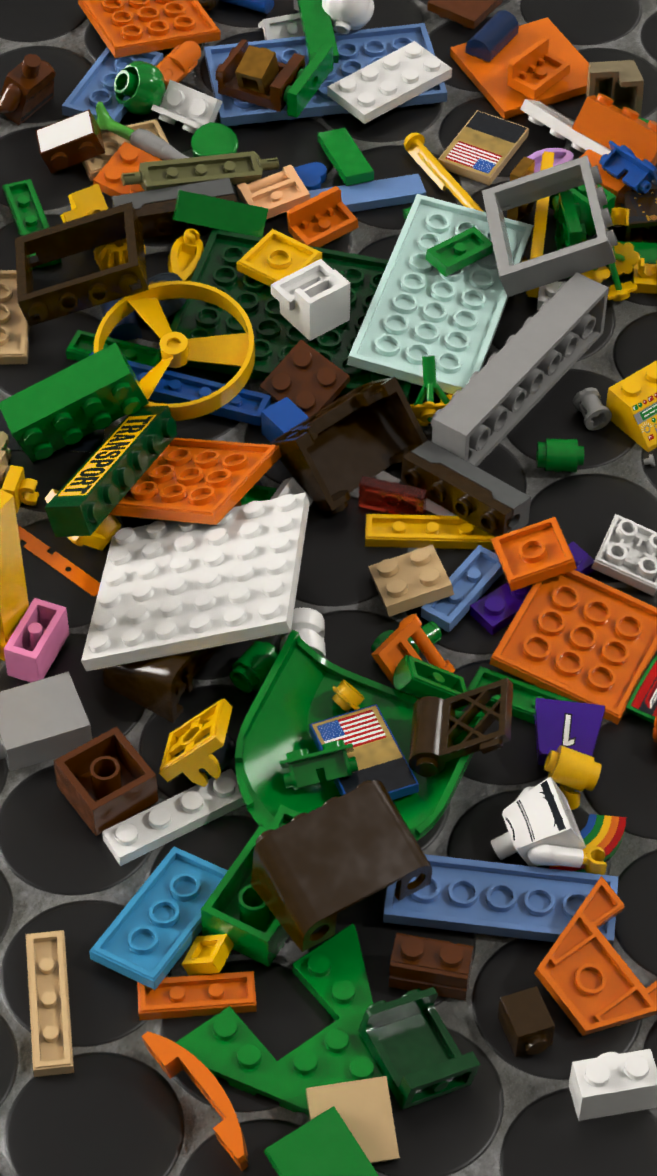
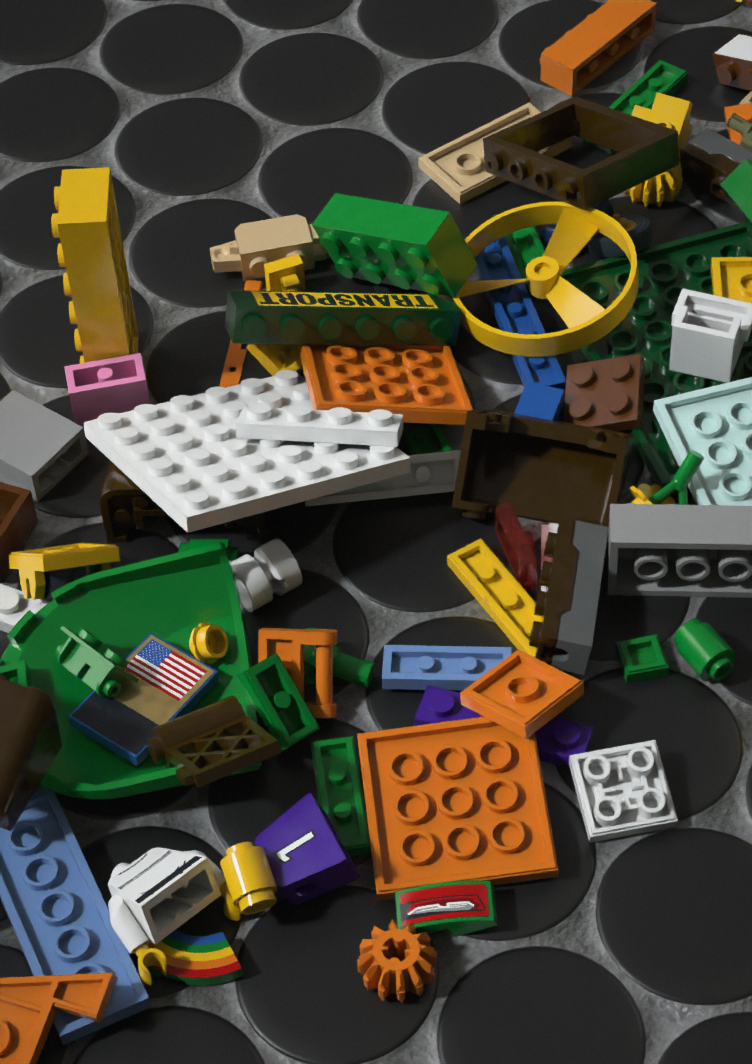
camera: 60 degrees right, 0 degrees up
(185, 254) = (696, 221): yellow arm -> none
(231, 523) = (322, 426): none -> white plate
(411, 580) = (415, 618): tan plate -> none
(537, 488) = (641, 659): none -> green tile

